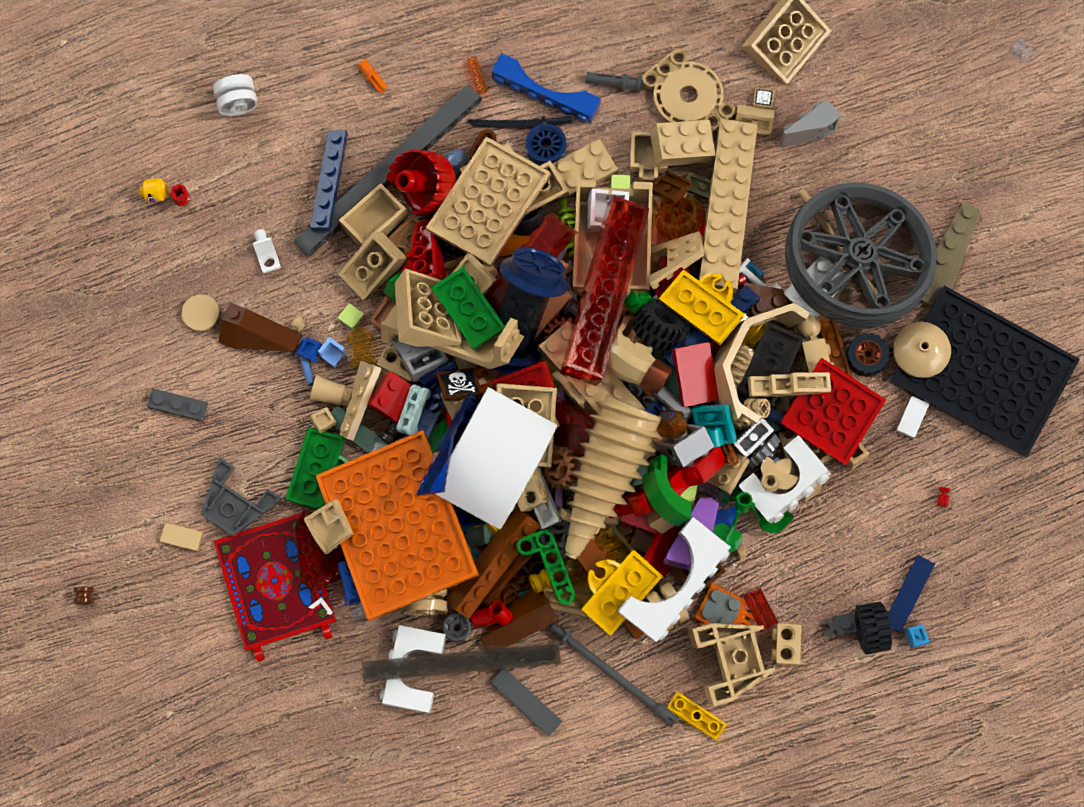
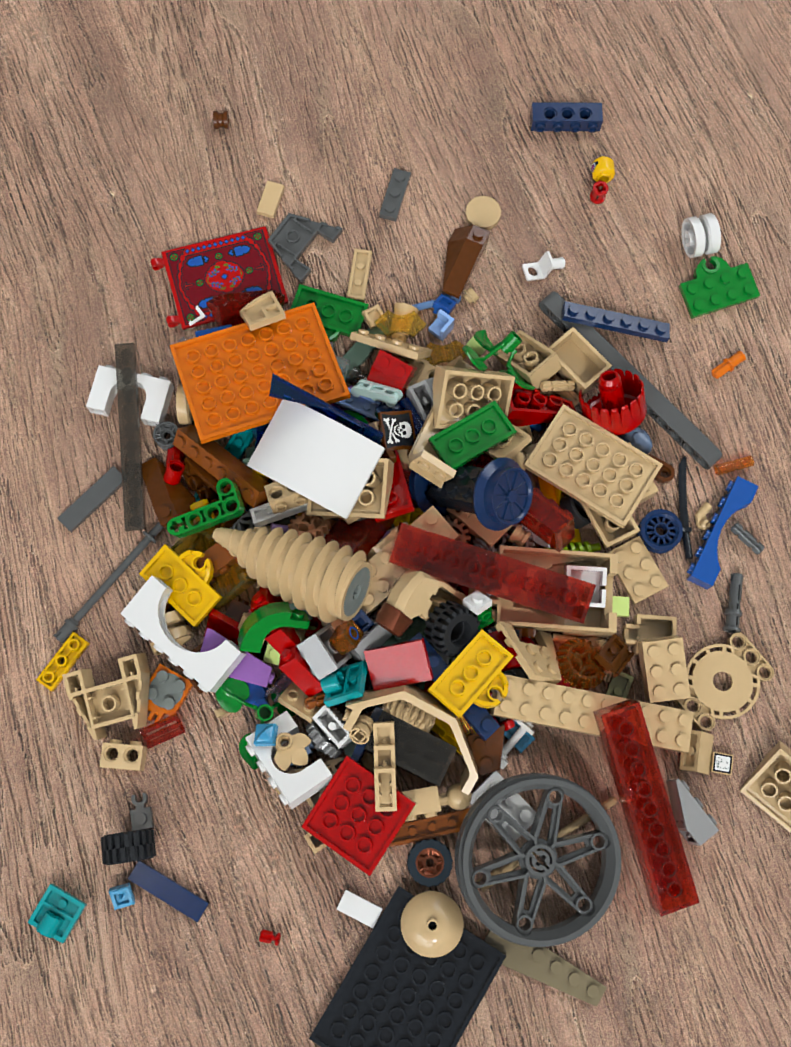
camera: 90 degrees right, 0 degrees up
(85, 199) = (573, 112): none -> dark blue brick
(272, 439) = (359, 275): none -> tan tile
(288, 83) = (718, 287): none -> green plate
(335, 399) = (392, 323): none -> clear yellow tile
(369, 277) = (507, 345): none -> green plant
(401, 236) = (563, 385): none -> tan axle
(529, 108) = (700, 516): none -> tan arm
(549, 67) = (747, 538): none -> dark grey axle
(635, 301) = (477, 602): none -> white plate
(764, 499) = (265, 735): none -> dark azure tile
(808, 160) = (646, 807): none -> clear red brick
(936, 696) = (57, 913): none -> teal plate

